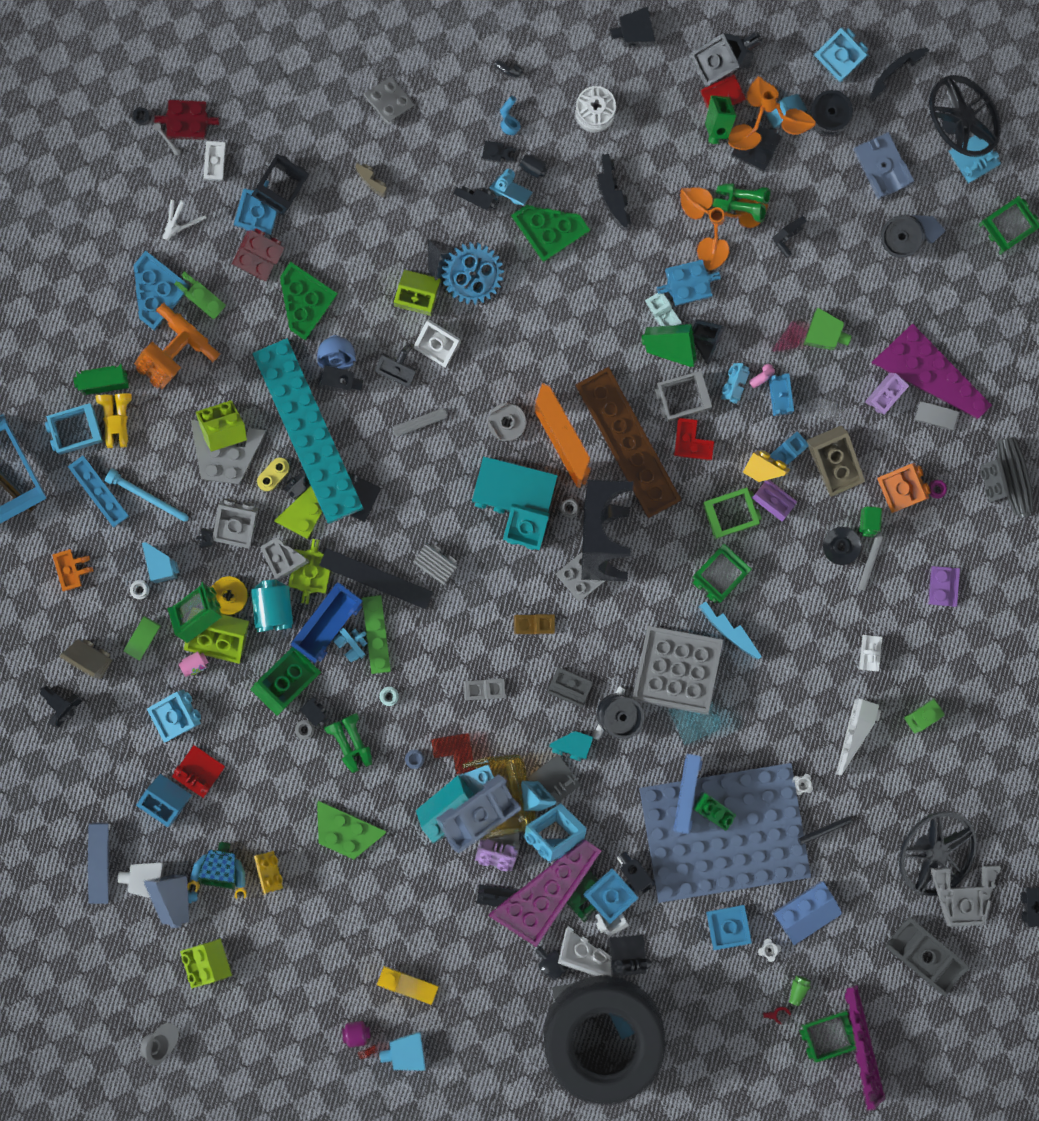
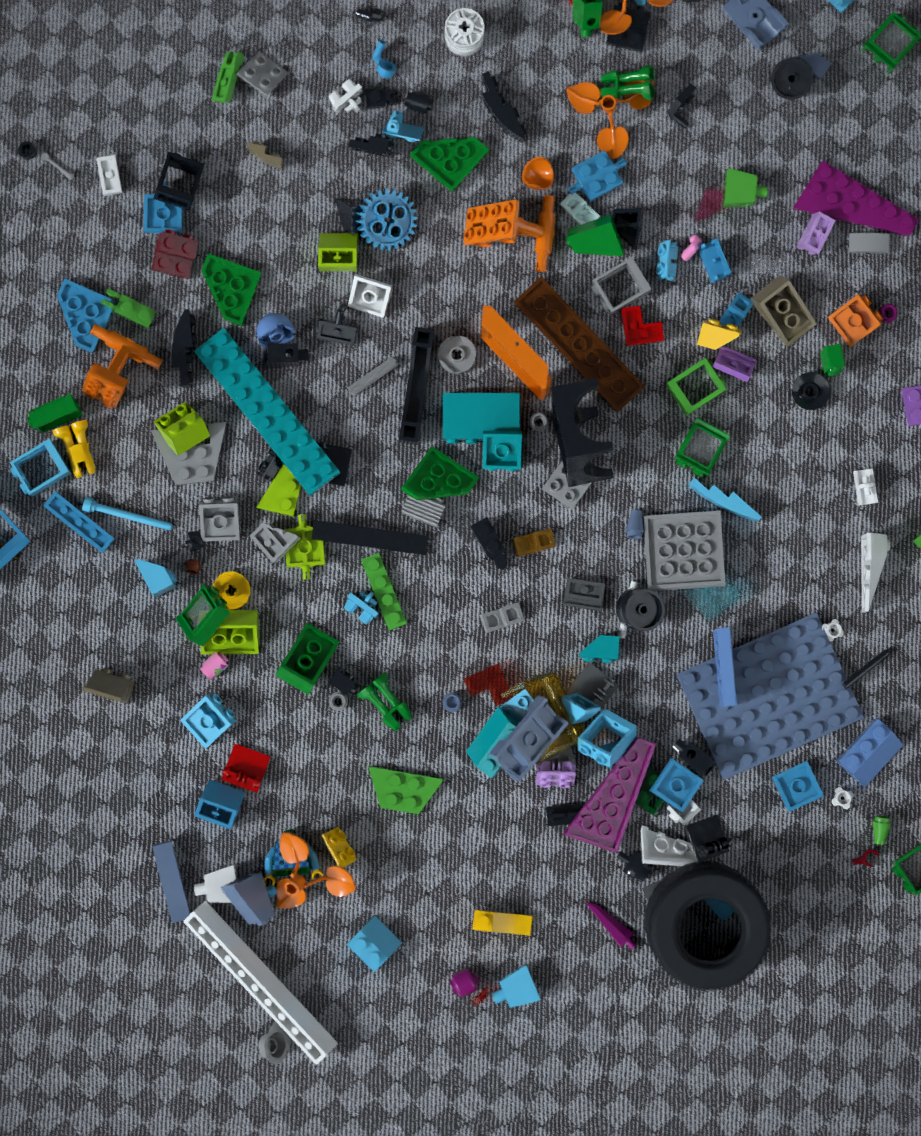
camera: 10 degrees left, 0 degrees up
(63, 708) = (99, 740): black piece -> none
(67, 569) = (68, 605): orange hinge -> none
(133, 589) = (137, 607): white plate -> none
(142, 638) = (158, 653): bright green slope -> none
(159, 983) = (260, 982): none -> white brick
(172, 227) = (84, 248): white plant -> none
(186, 119) = (72, 142): dark red plate -> none
(197, 562) = (192, 566): none -> copper plate
(206, 963) = (301, 951): lime slope -> none
(211, 901) = (291, 891): none -> orange plant
(244, 341) = (182, 342): none -> black slope
(271, 606) = (276, 589): teal cylinder -> none
(273, 474) = (244, 462): light yellow plate -> none
(278, 973) = (374, 943): none -> medium azure slope
(326, 622) = (333, 591): blue windscreen -> none
(354, 94) = (227, 77): none -> bright green hinge
(383, 696) = (416, 643): light aqua plate -> none
(457, 147) = (340, 102): none -> white hips
(458, 538) = (438, 477): none -> green plate
(459, 443) = (416, 386): none -> black arch
(491, 613) = (489, 542): none -> black hinge
(517, 1021) = (615, 928): none -> magenta bar
(582, 306) = (502, 224): none -> orange plate
(631, 266) = (538, 174): none -> orange helmet
(637, 633) = (635, 525): none -> sand blue cone
(713, 811) = (754, 677): green slope -> none
(870, 562) = (842, 400): light grey bar -> none

